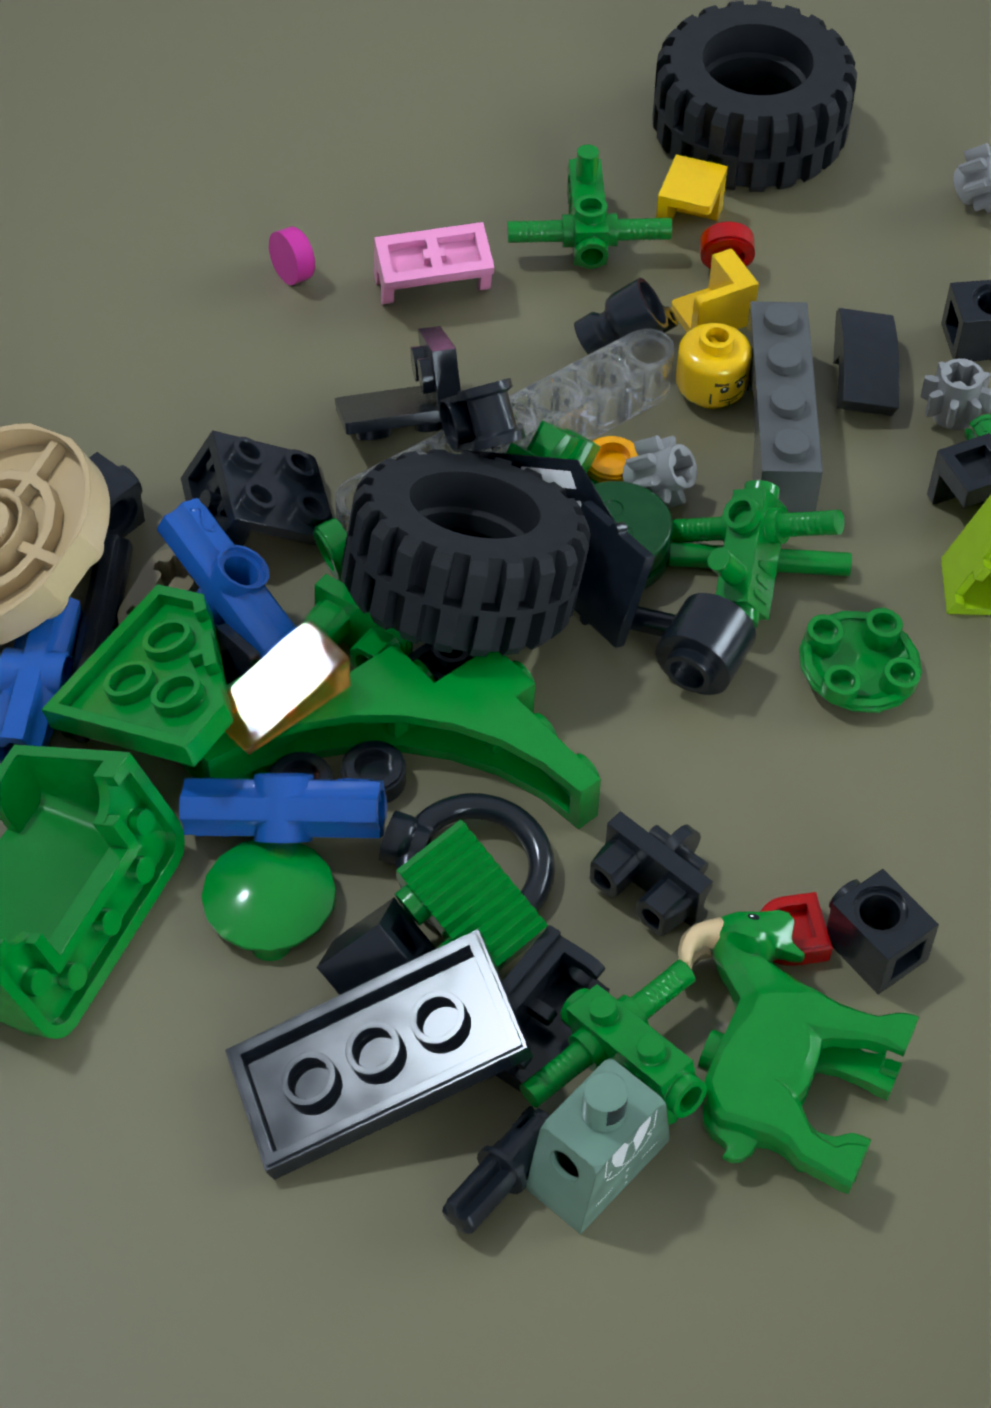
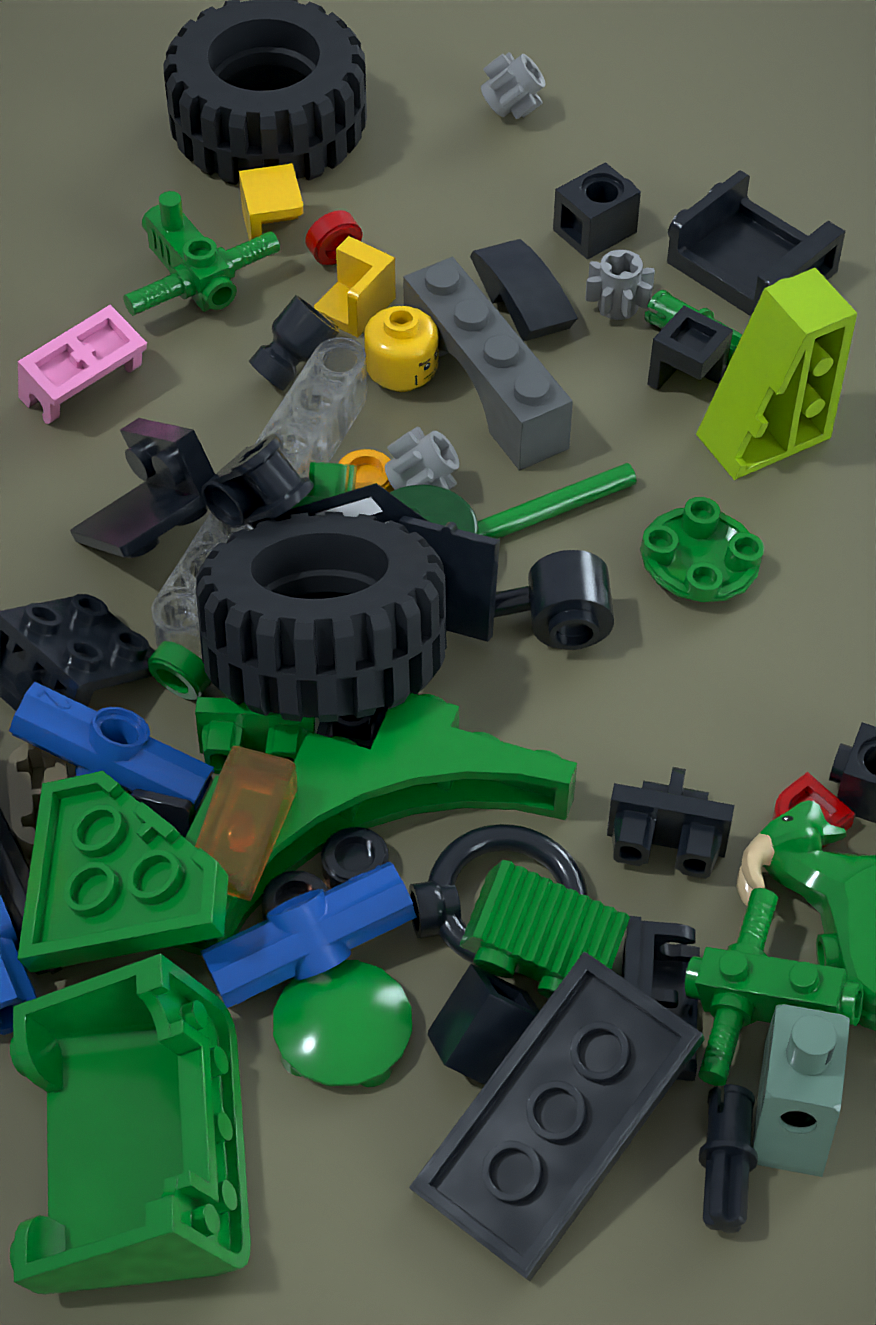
camera: 30 degrees left, 0 degrees up
(752, 535) = (546, 480): green piece -> none

